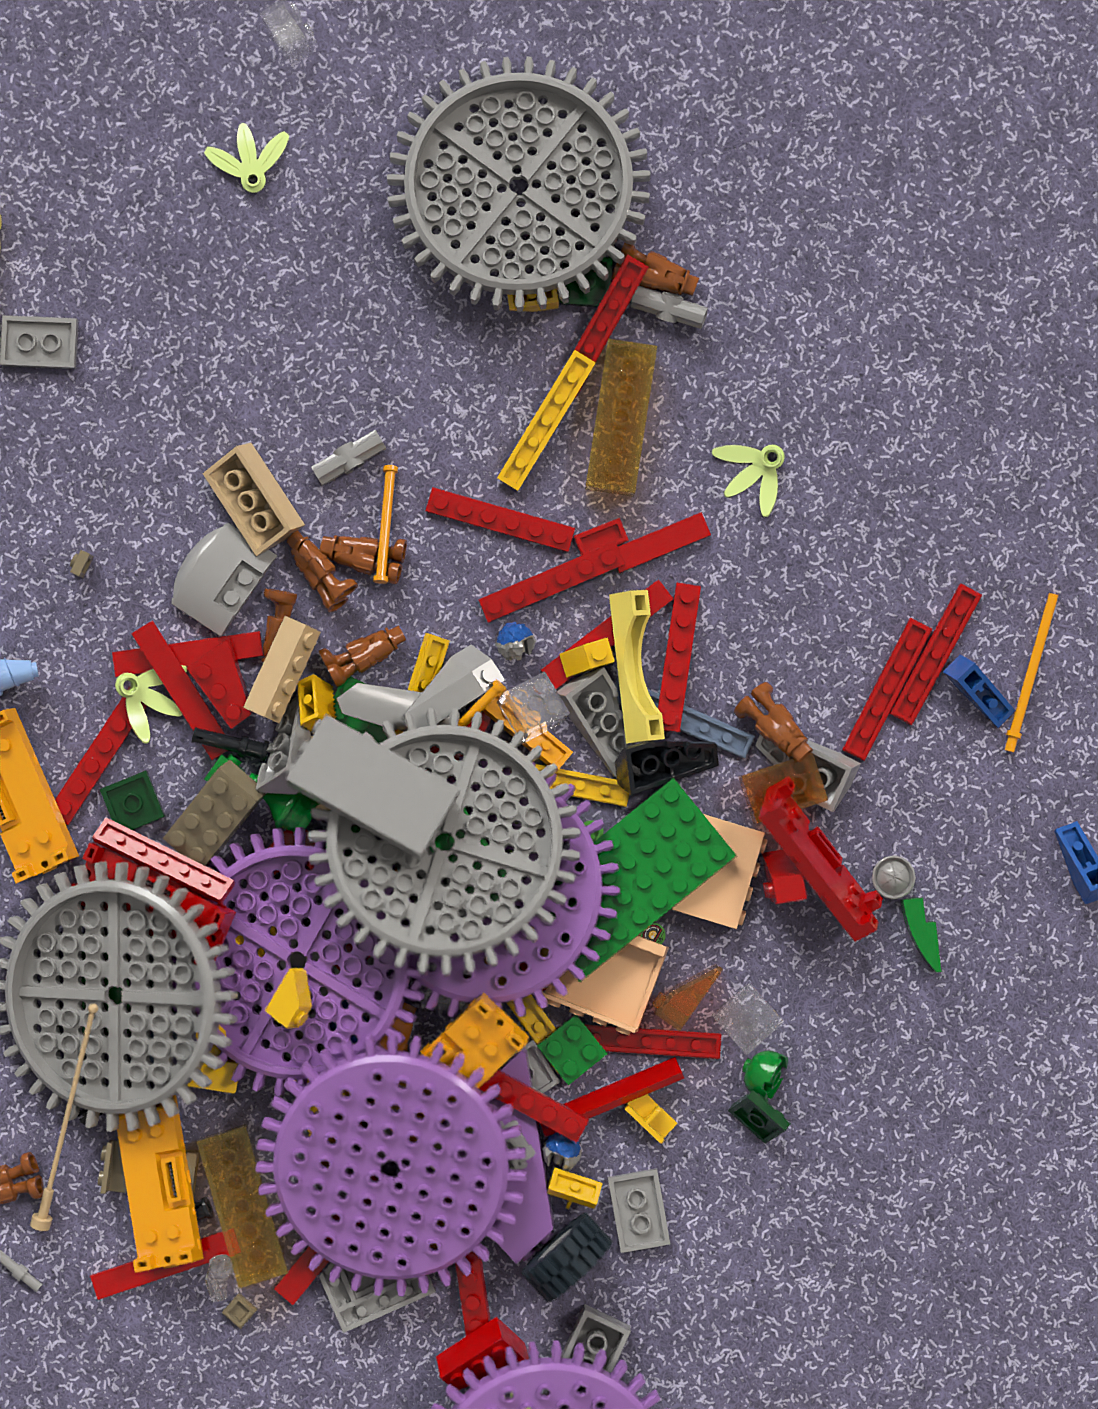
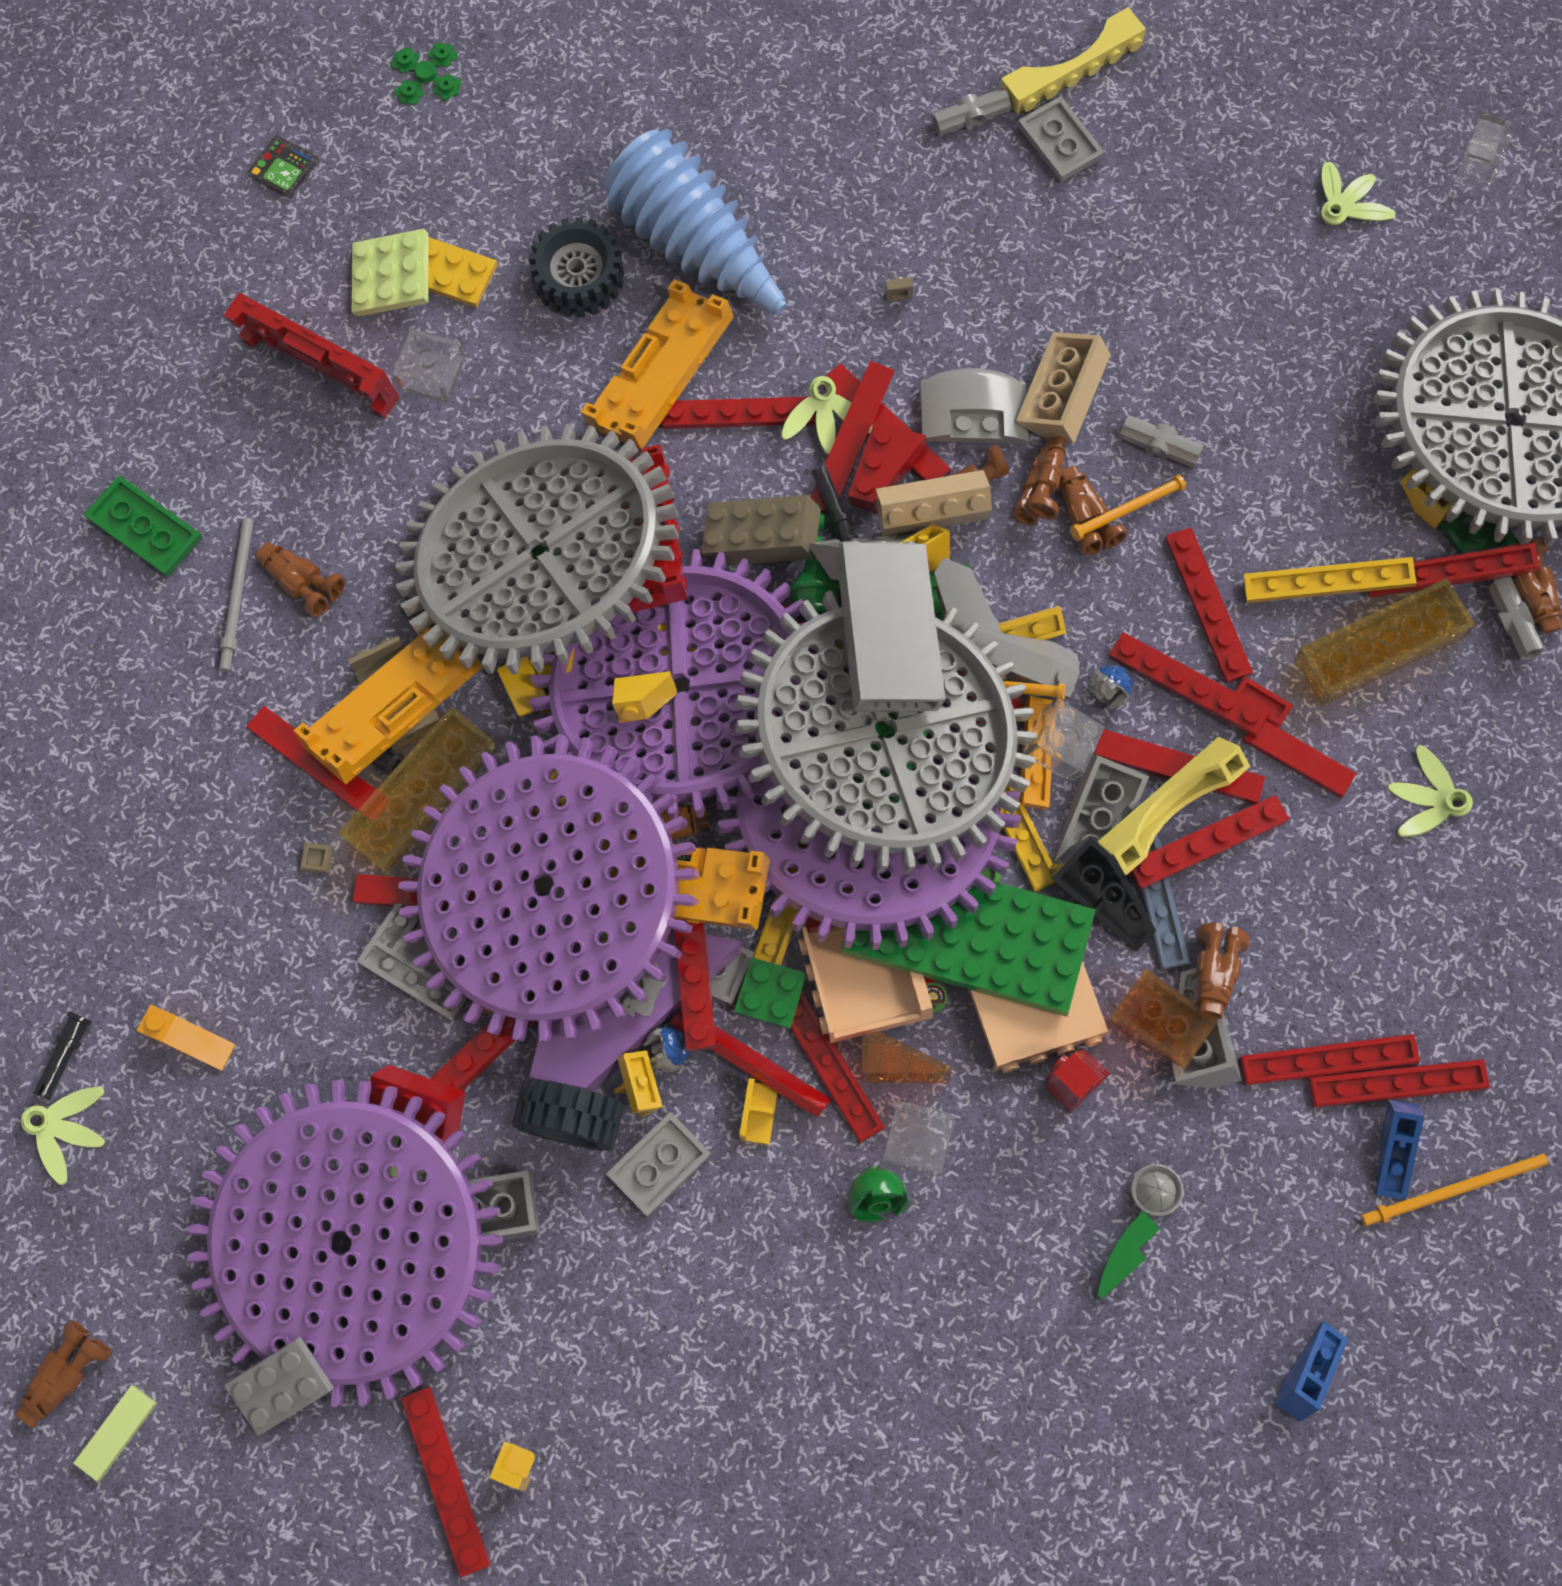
camera: 60 degrees right, 15 degrees down
(41, 1220) = (289, 630): tan piece -> none
(133, 801) = (720, 464): dark green plate -> none
(163, 860) = (691, 521): plate -> none
(217, 1276) = (336, 814): clear arm -> none
(363, 652) = (997, 564): dark orange piece -> none
(587, 657) = (1147, 758): yellow slope -> none
(759, 1116) = (831, 1215): dark green plate -> none
(819, 861) = (1121, 1093): red piece -> none

